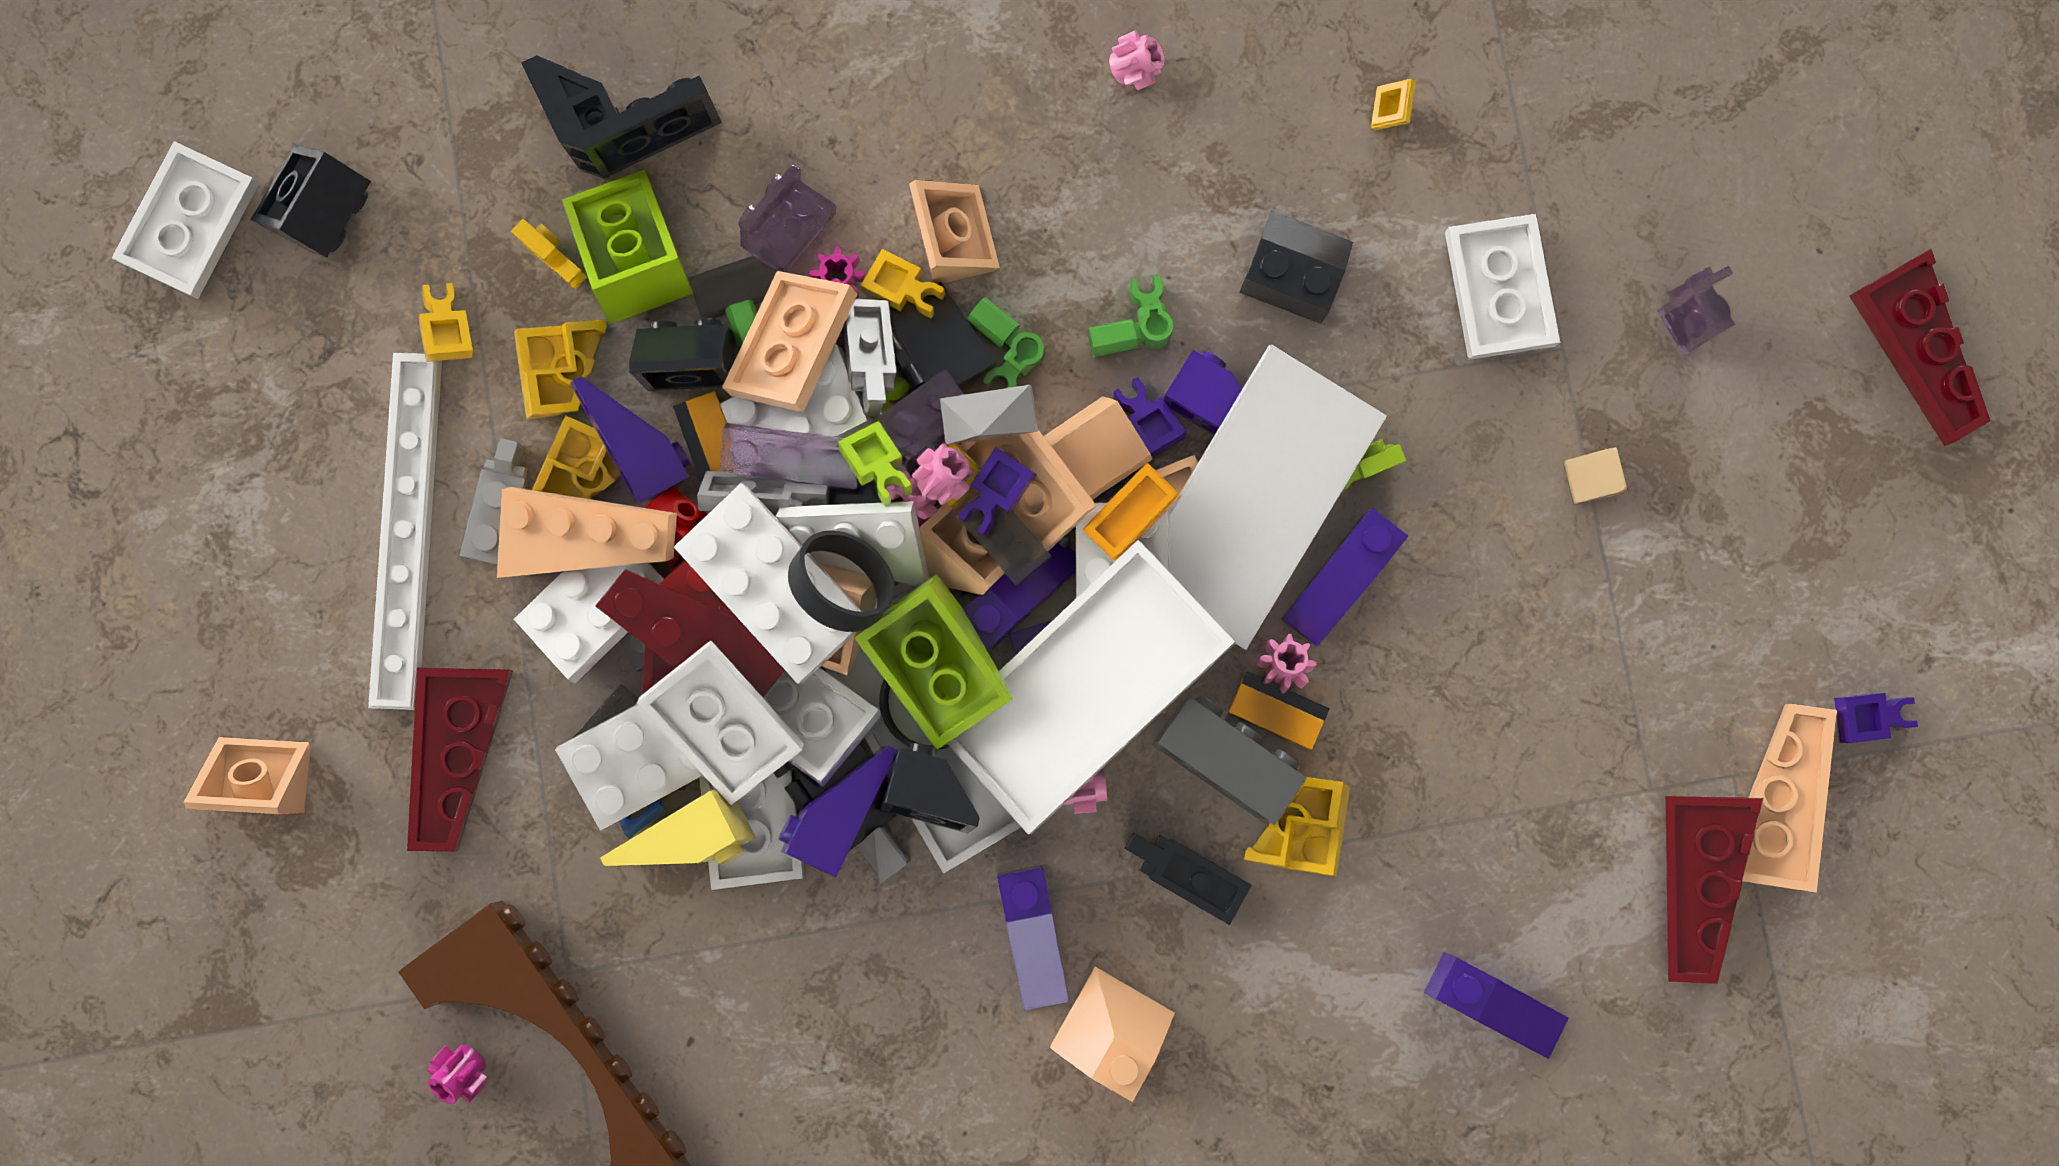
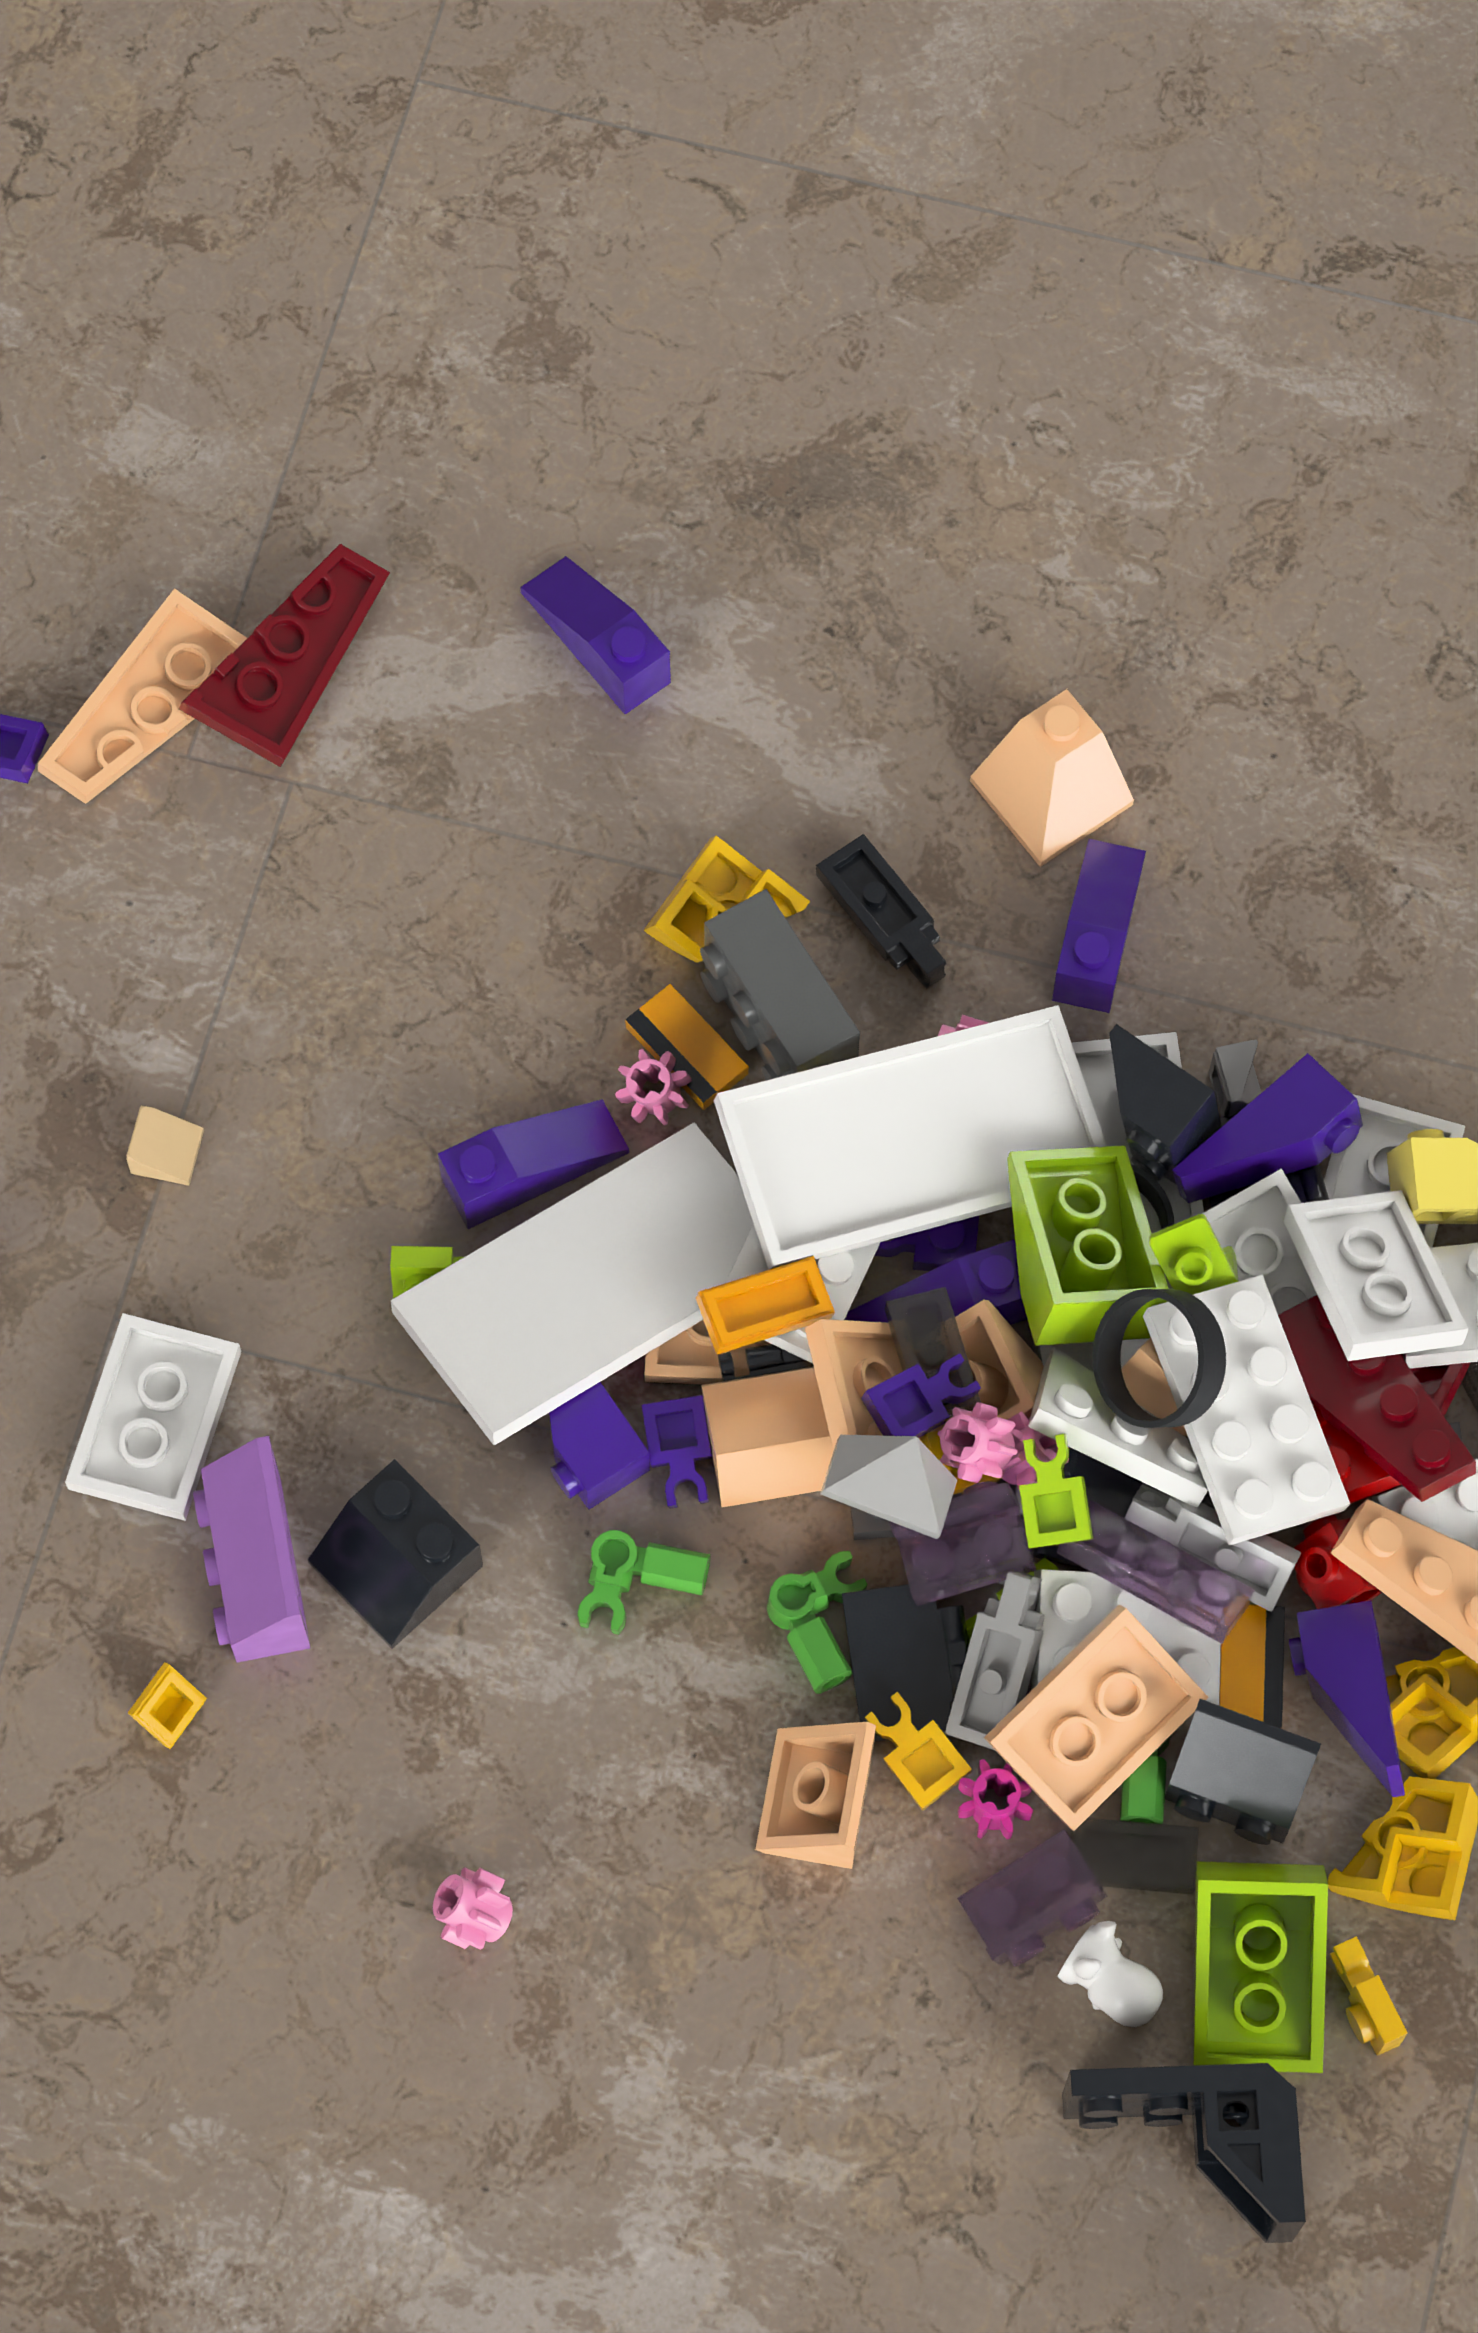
camera: 155 degrees left, 15 degrees down
(713, 193) = (1113, 1982): none -> white animal
(848, 673) = (1194, 1256): none -> lime bracket
(1386, 218) = (251, 1554): none -> medium lavender slope

